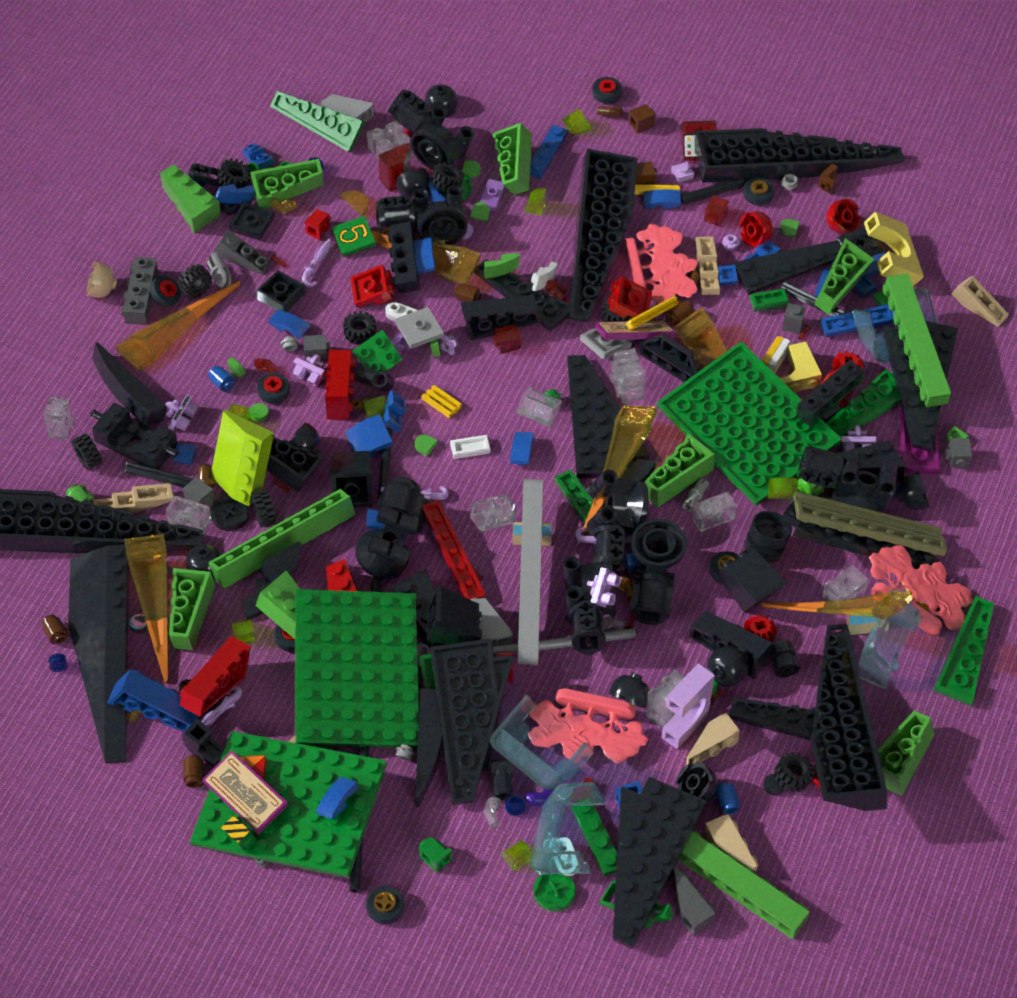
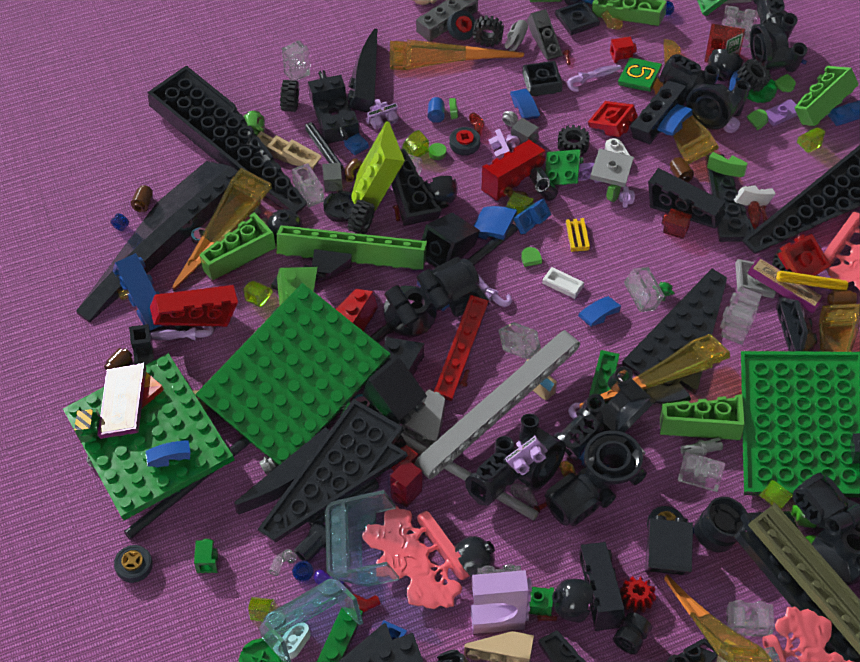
camera: 45 degrees right, 0 degrees up
(443, 96) = (814, 20): black cylinder -> none
(525, 680) = (406, 483): none -> dark red brick

